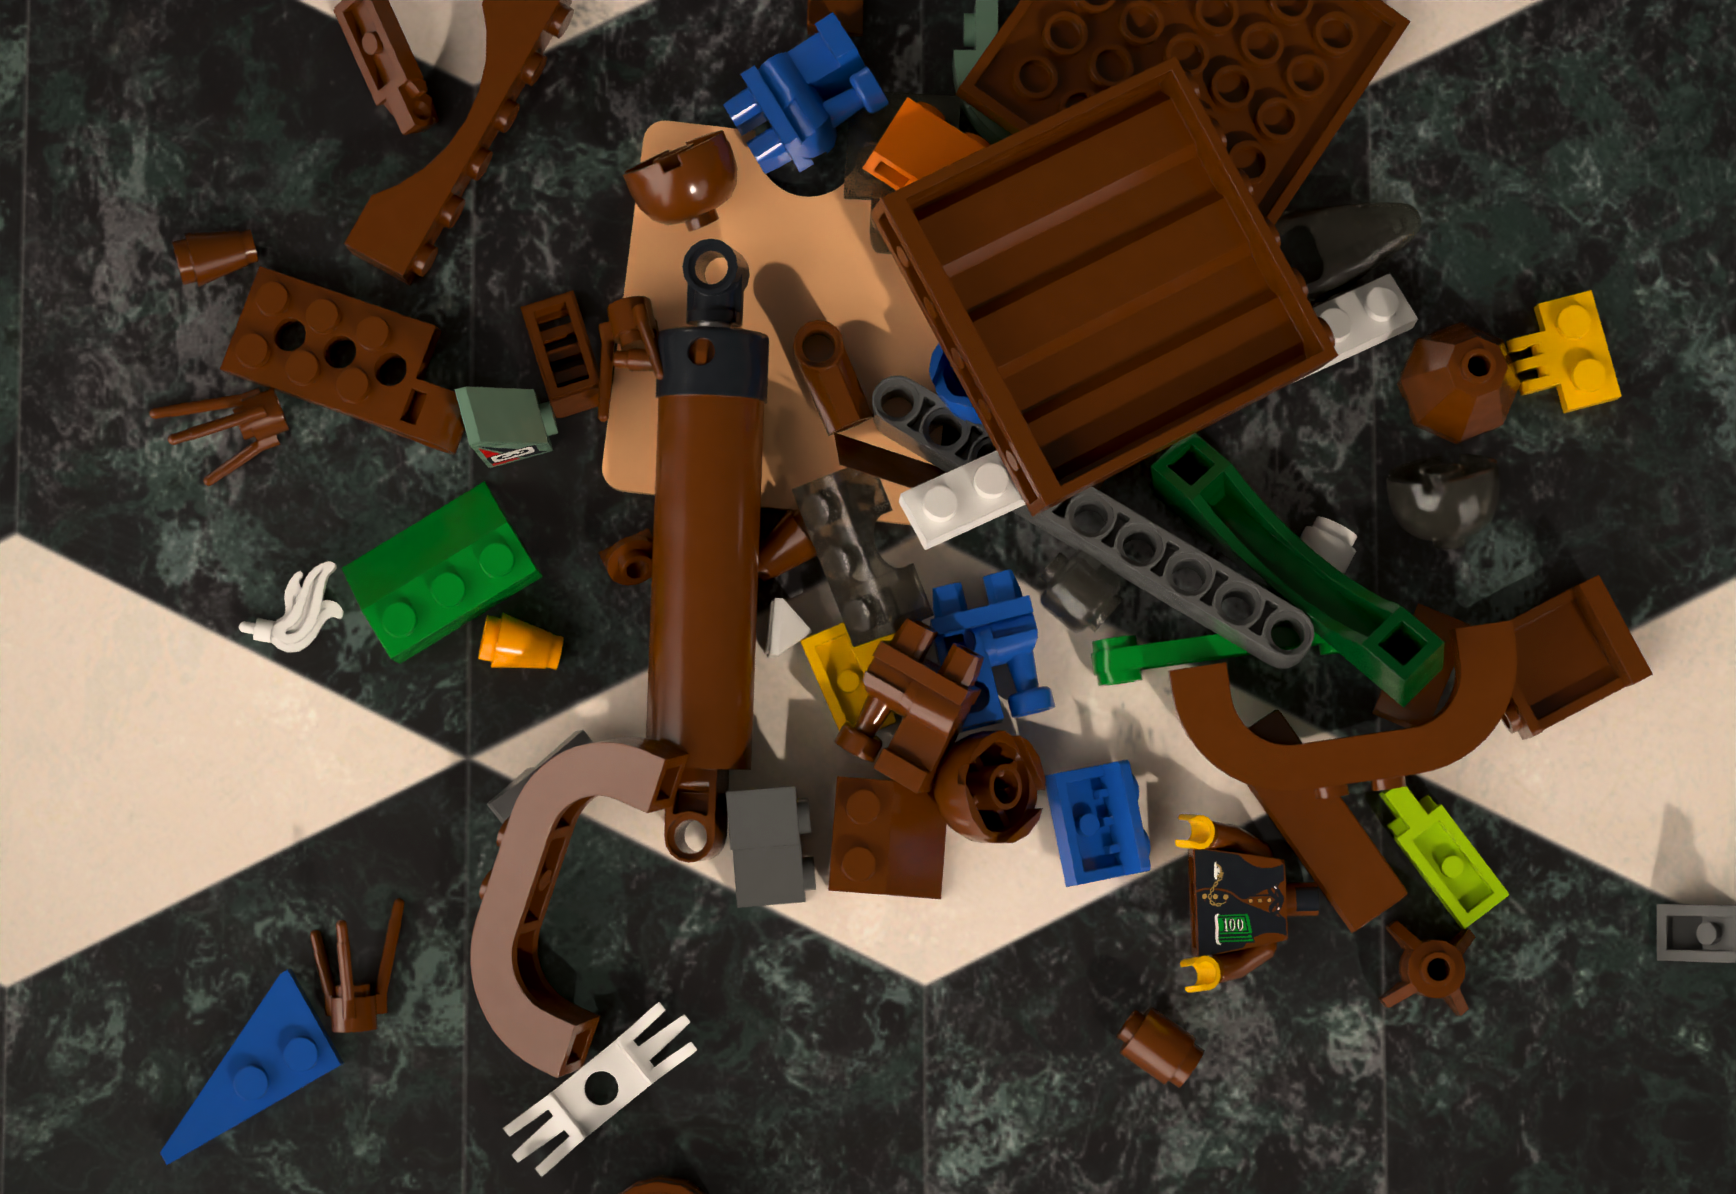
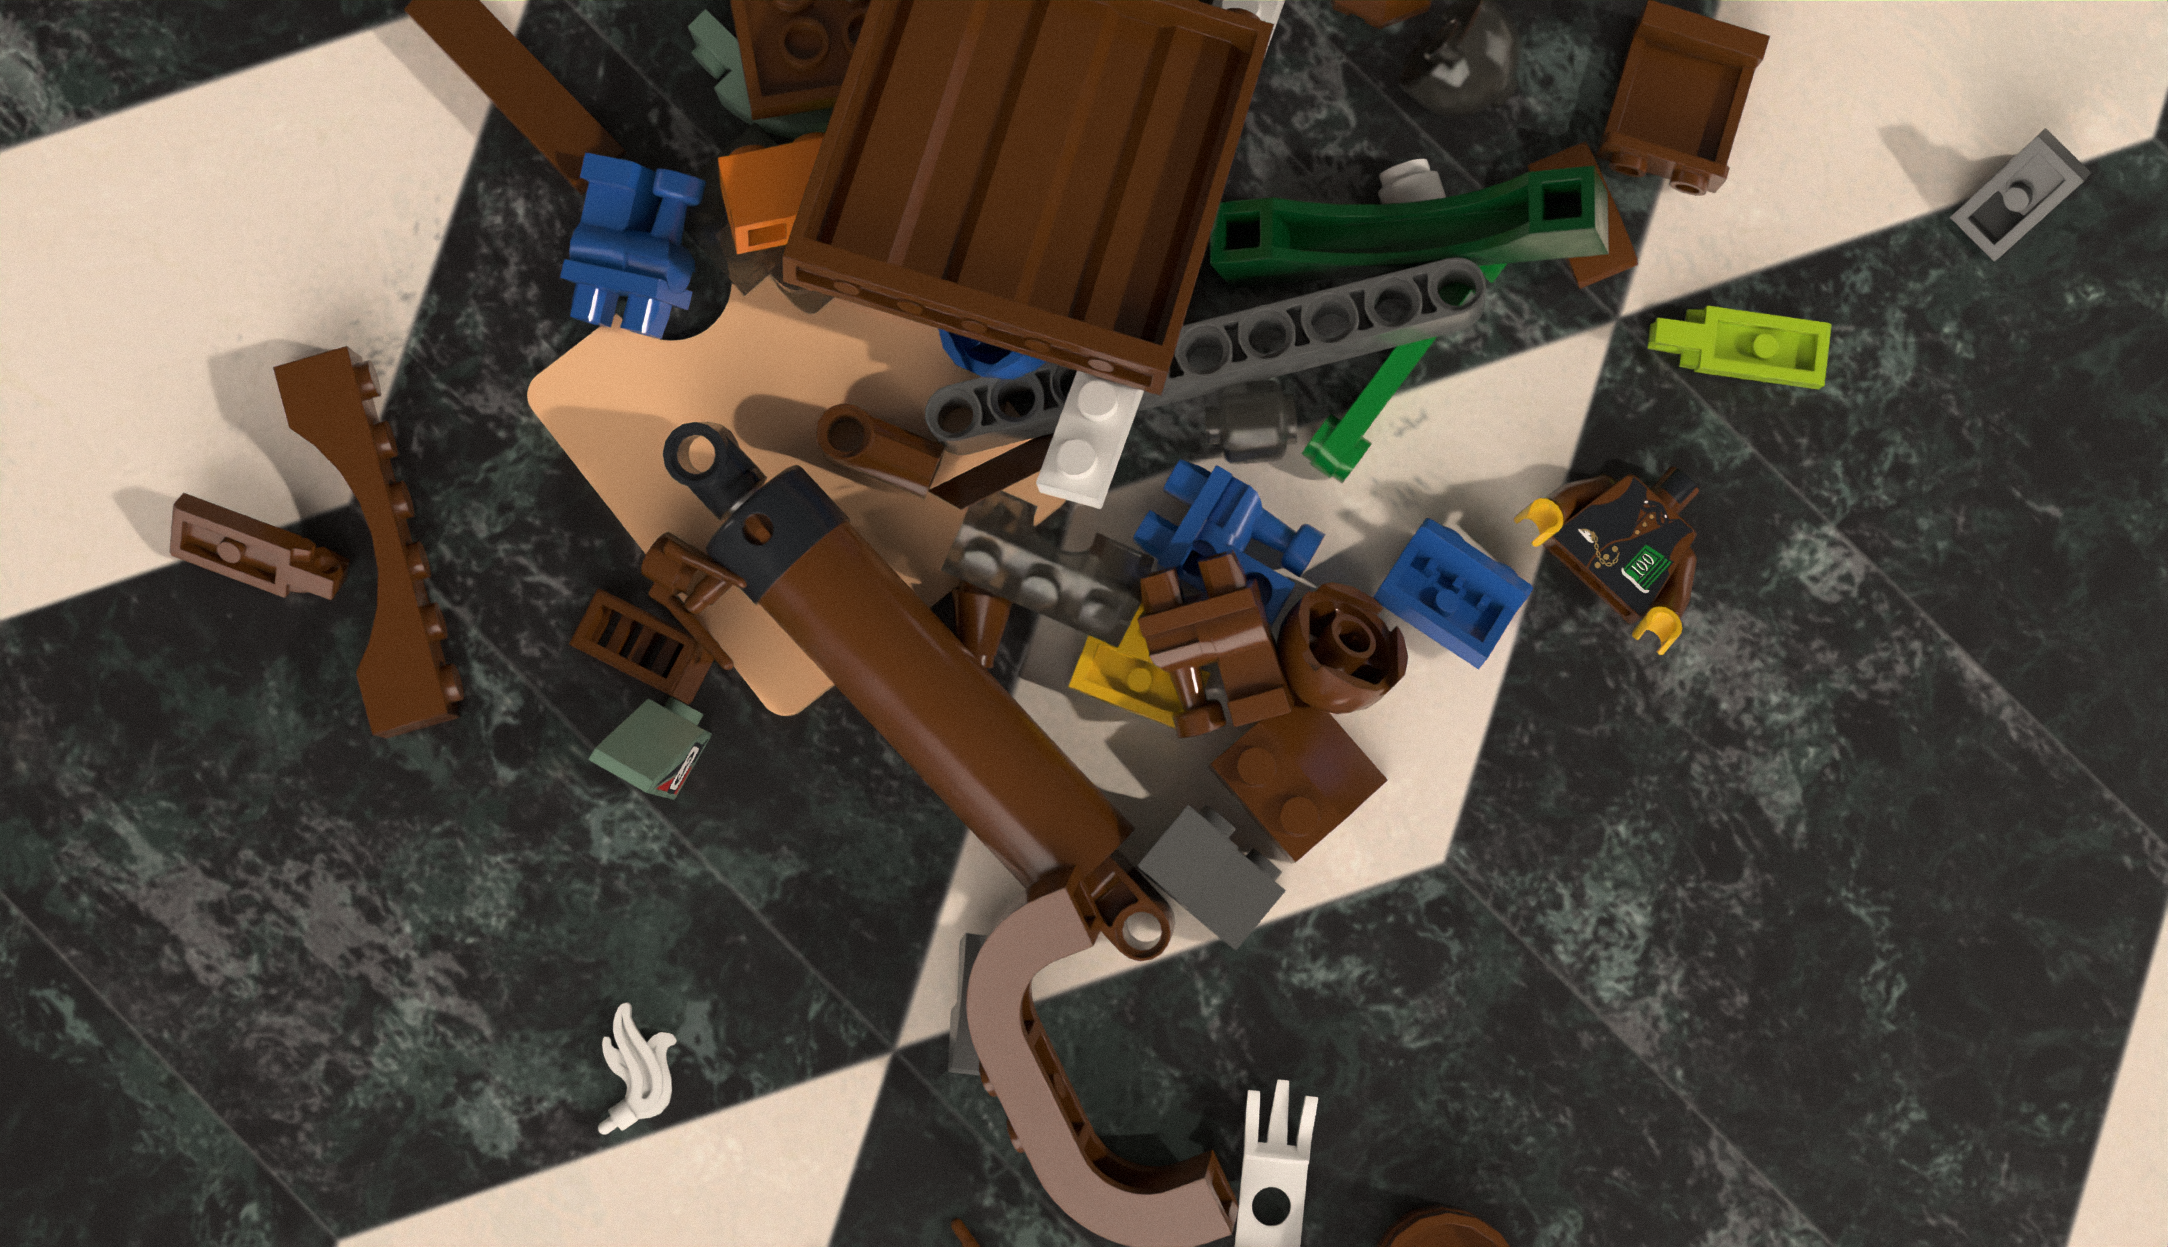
camera: 40 degrees left, 0 degrees up
(211, 255) = (272, 852): reddish brown cone -> none
(255, 413) = (439, 947): reddish brown plant -> none
(405, 409) = (561, 817): reddish brown hinge -> none
(440, 573) = (721, 923): green slope -> none
(518, 644) = (843, 917): light orange cone -> none
(630, 558) = (864, 757): reddish brown plate -> none
(685, 182) = (603, 408): reddish brown cylinder -> none
(783, 628) = (1044, 690): white slope -> none
(1159, 1046) = (1680, 721): reddish brown brick -> none
(1329, 841) = (1620, 418): reddish brown slope -> none
(1414, 968) = (1816, 453): reddish brown brick -> none
(1480, 695) = (1661, 201): reddish brown arch -> none

